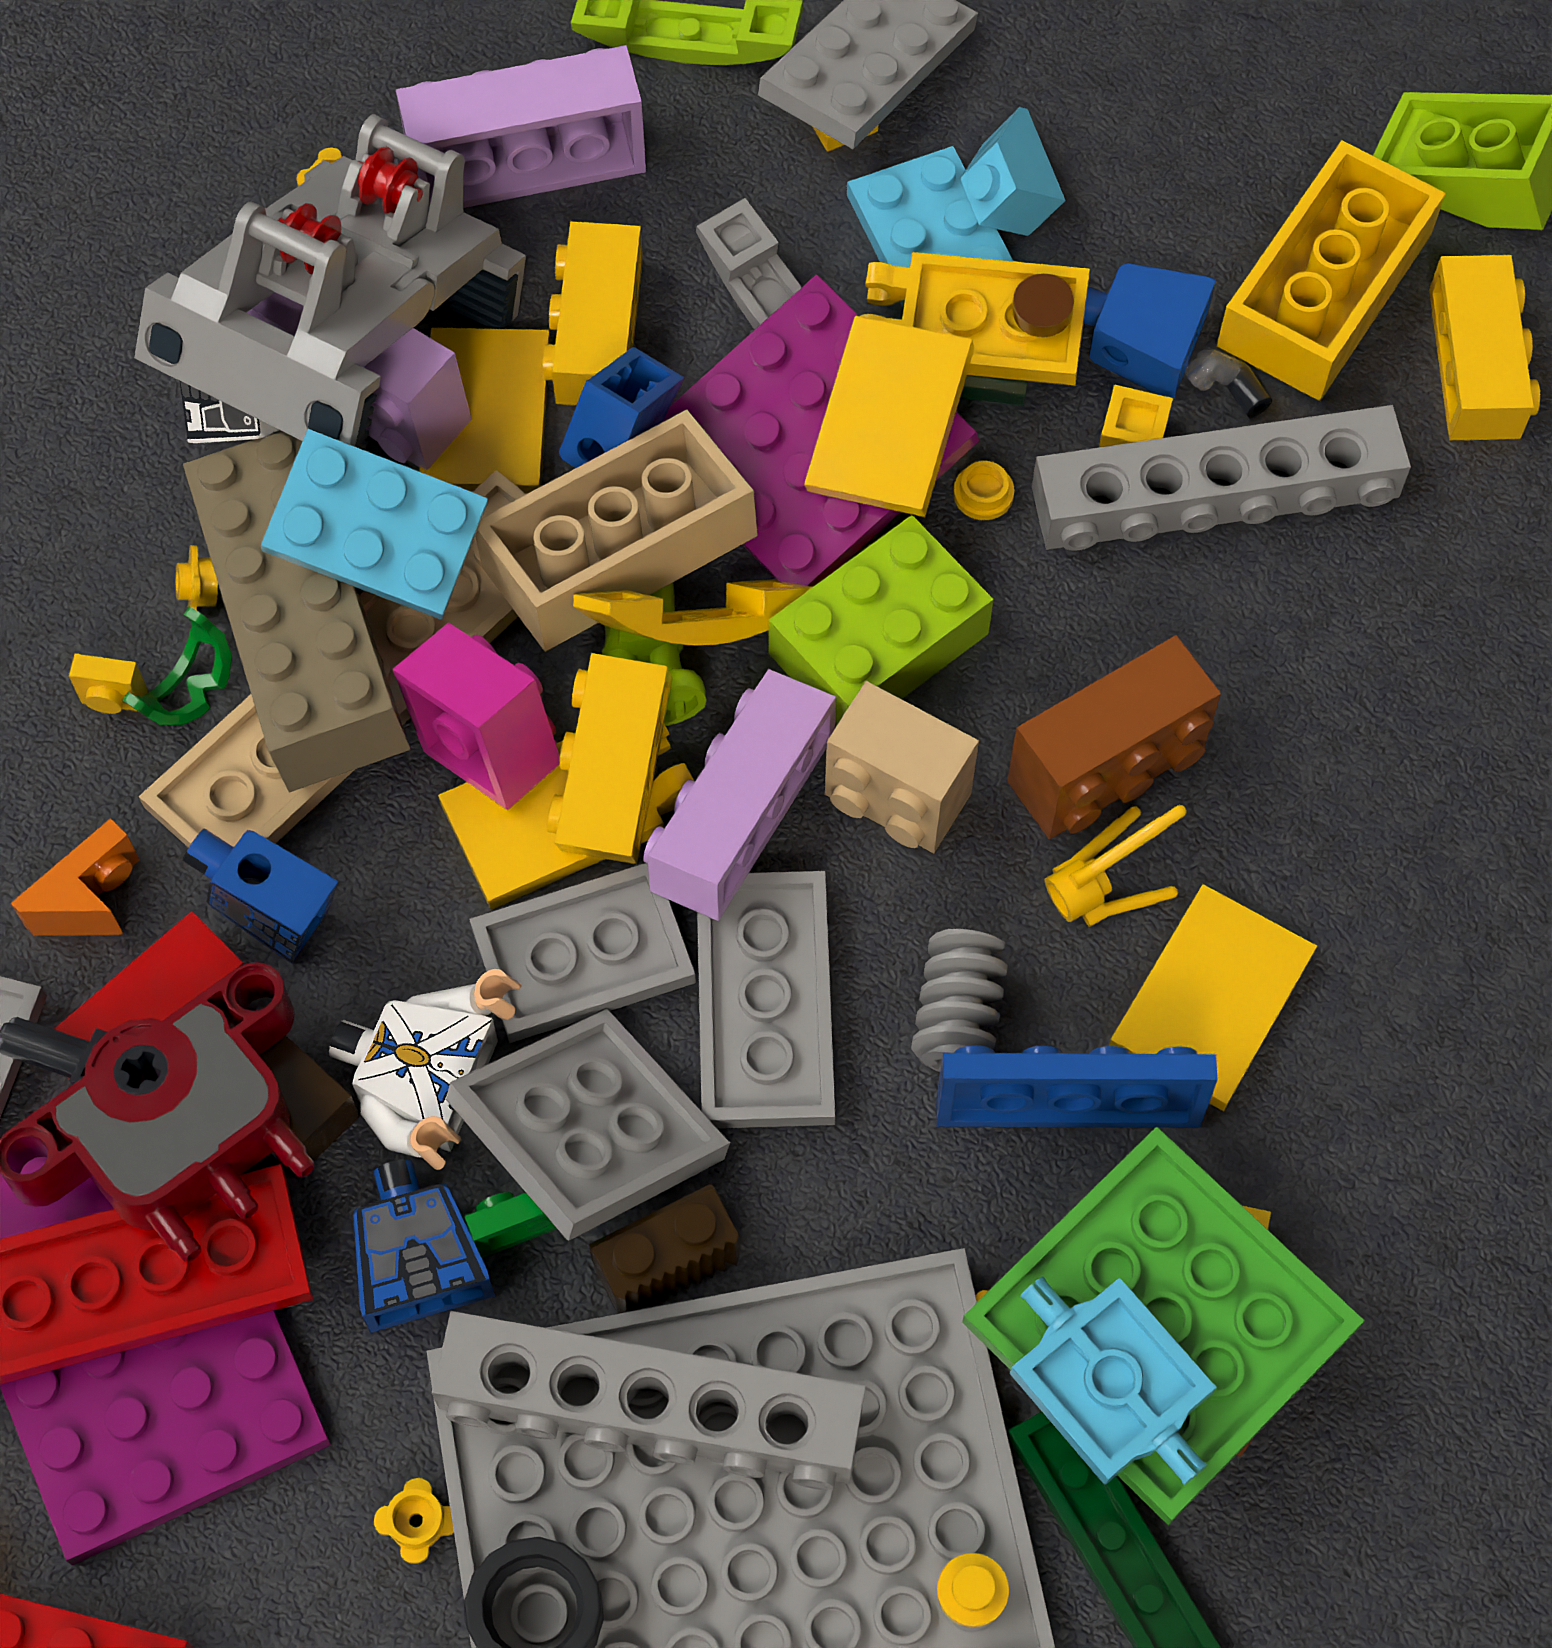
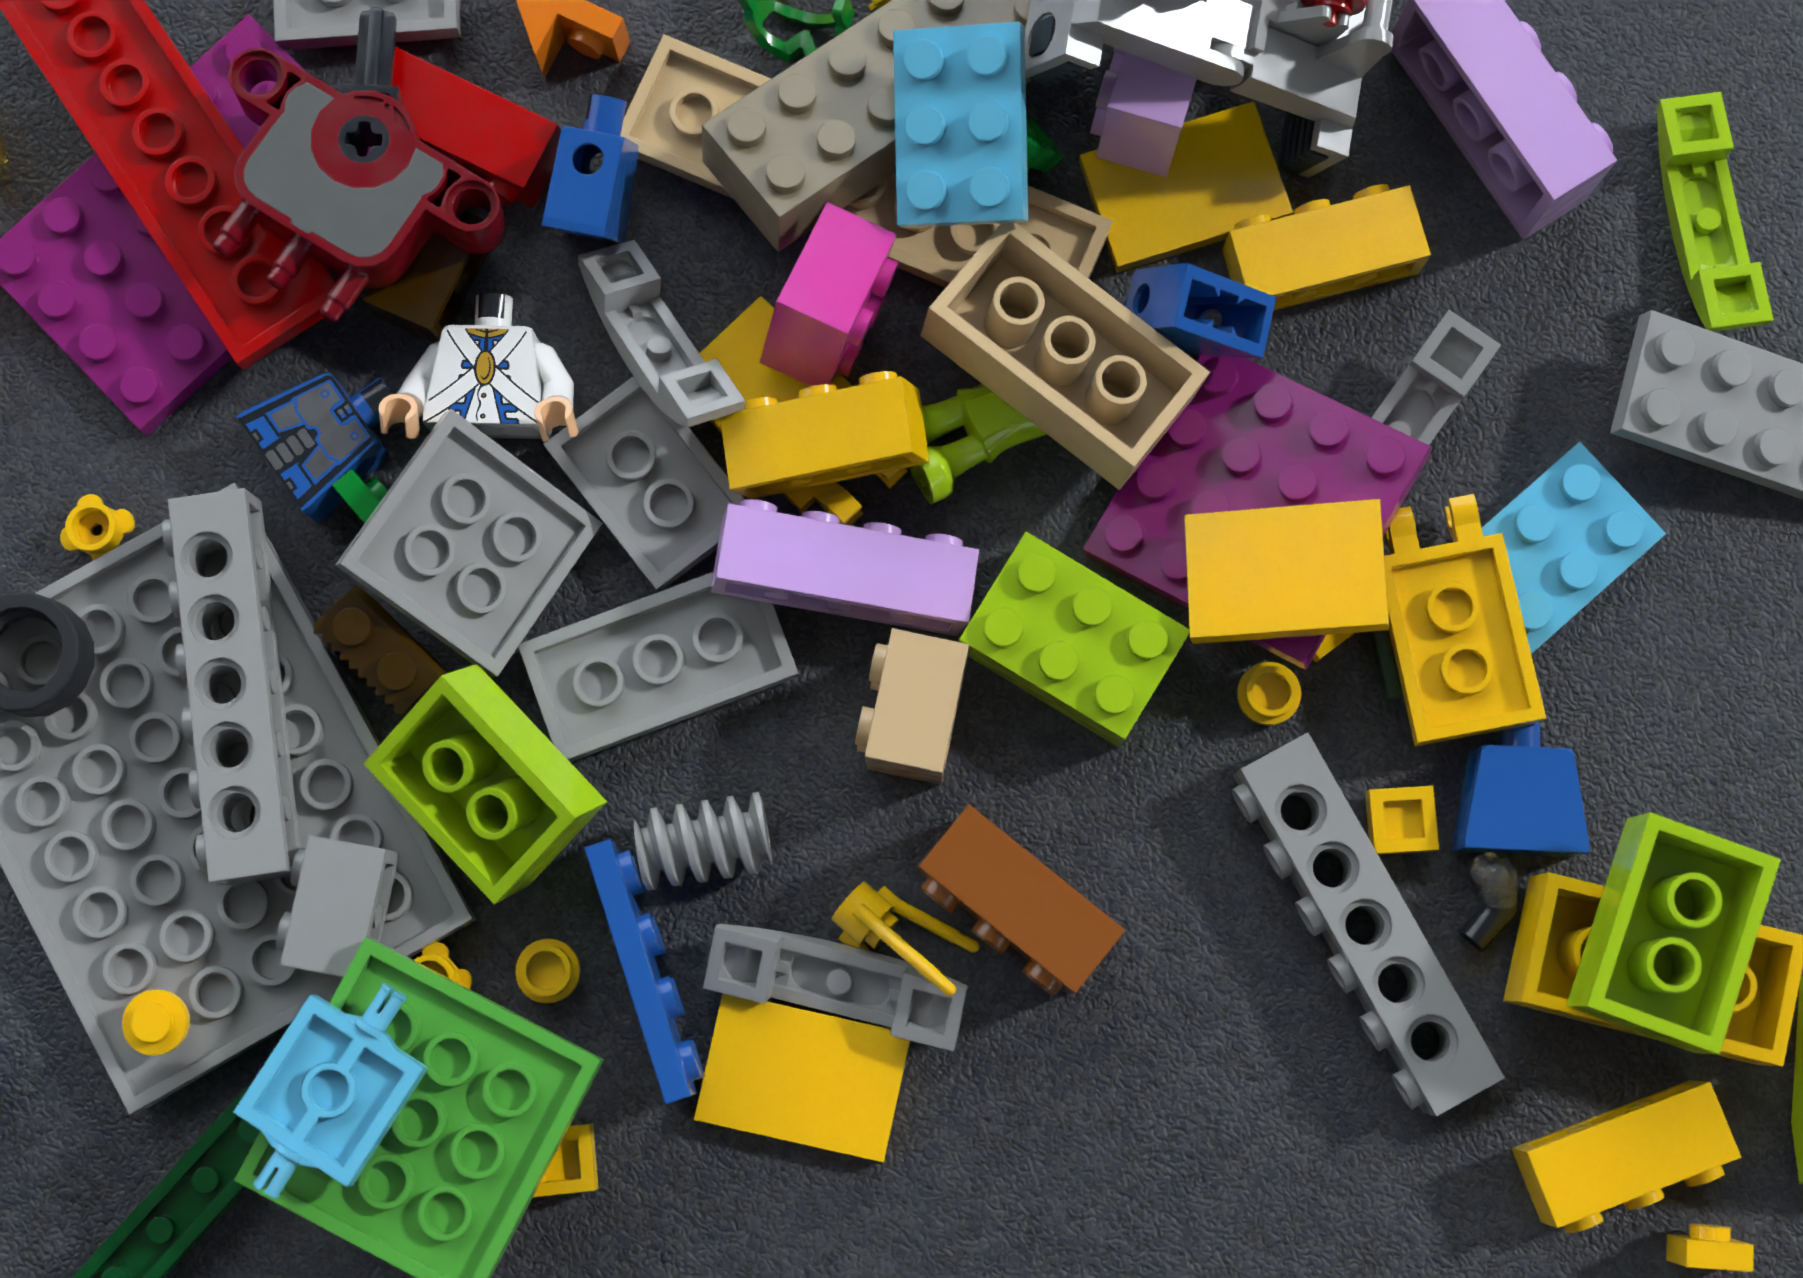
camera: 75 degrees right, 15 degrees up
(385, 917) = (652, 341): none -> light grey slope
(745, 615) = (998, 467): yellow slope -> none
(837, 1181) = (484, 782): none -> lime brick
(915, 1361) = (336, 904): none -> light grey brick
(1012, 178) = (1644, 604): medium azure slope -> none
(1036, 1199) = (548, 971): none -> yellow plate
(1043, 305) = (1479, 684): reddish brown tile -> none
(1135, 927) = (834, 979): none -> light grey slope
(1314, 218) = (1673, 933): none -> lime brick

